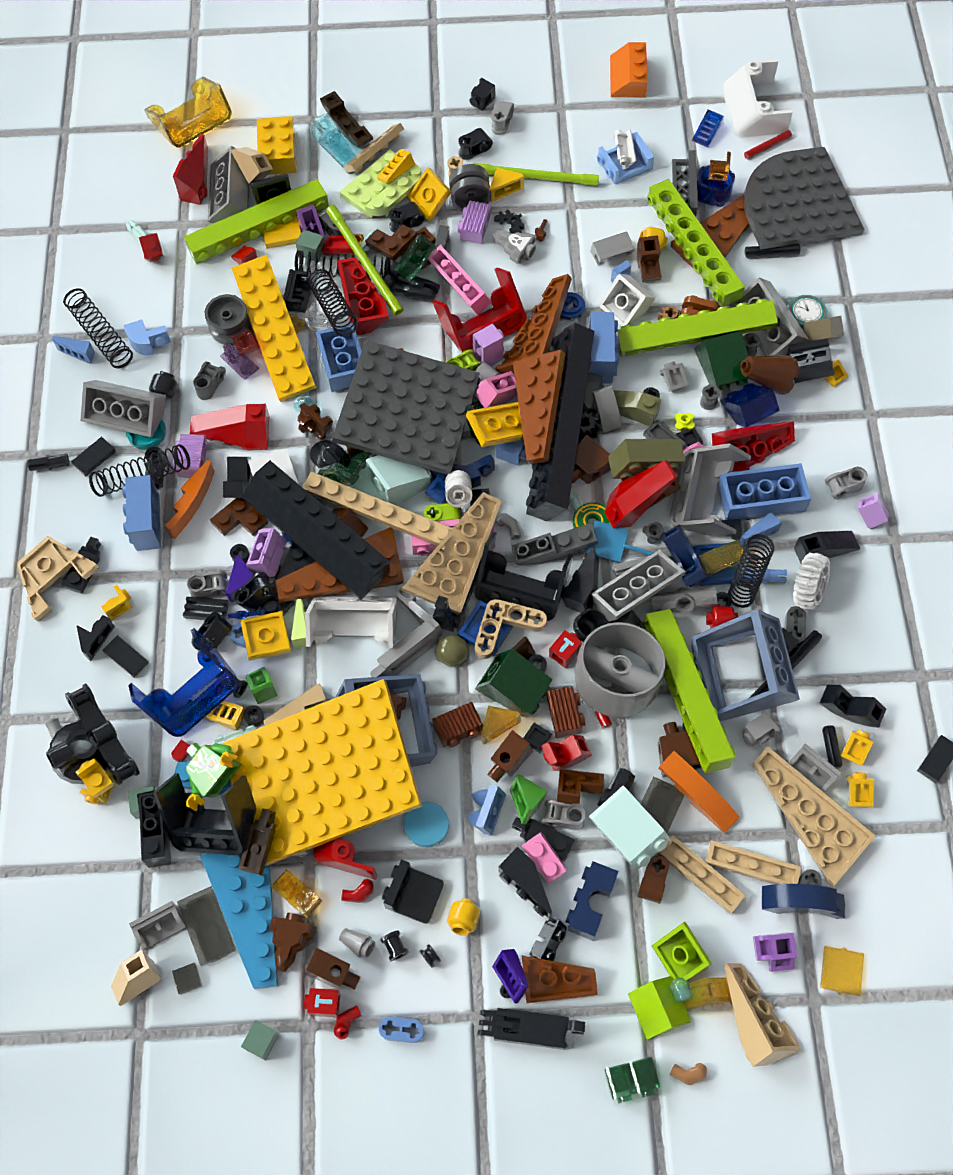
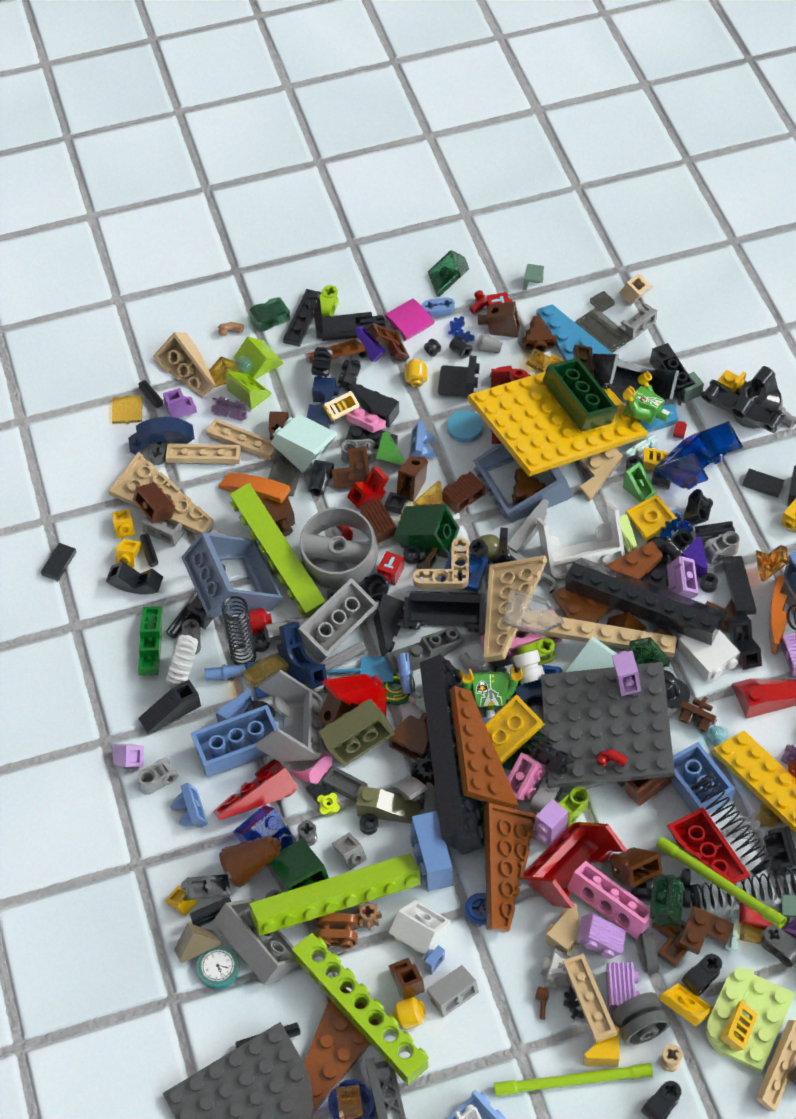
camera: 165 degrees right, 10 degrees down
(168, 544) = (771, 563): none -> clear orange slope
(212, 535) = (739, 585): none -> black tile
(285, 778) = (579, 394): none -> dark green brick
(370, 1080) = (447, 271): none -> clear green slope
(375, 416) = (626, 673): none -> lavender brick
(389, 990) = (457, 325): none -> clear blue animal
(422, 366) = (611, 755): none -> red arm
(425, 293) = (635, 866): none -> reddish brown torso
(442, 525) = (530, 613): none -> clear tile
(445, 1017) = (409, 319): none -> dark pink slope
(465, 632) = (481, 552): none -> black bush
(469, 384) = (559, 759): none -> black hinge
(478, 253) = (601, 936): none -> lavender brick
(479, 979) = (391, 339): none -> reddish brown plate
(502, 478) = (491, 688): none -> bright green torso
(505, 206) = (589, 998): none -> tan plate
(508, 261) = (565, 931): none -> tan slope
(550, 1072) = (329, 300): none -> lime piece
(558, 883) = (349, 399): none -> yellow slope
(582, 948) = (321, 362): none -> black gear
(583, 514) = (405, 673): none -> medium blue pin
(585, 1067) = (300, 321): none -> black tile
(716, 935) = (223, 405): none -> clear purple hinge
(809, 984) = (150, 393): none -> black axle
(813, 447) = (190, 799): none -> medium blue tile
(823, 788) = (153, 502): none -> copper brick
(840, 631) = (150, 641): none -> green slope

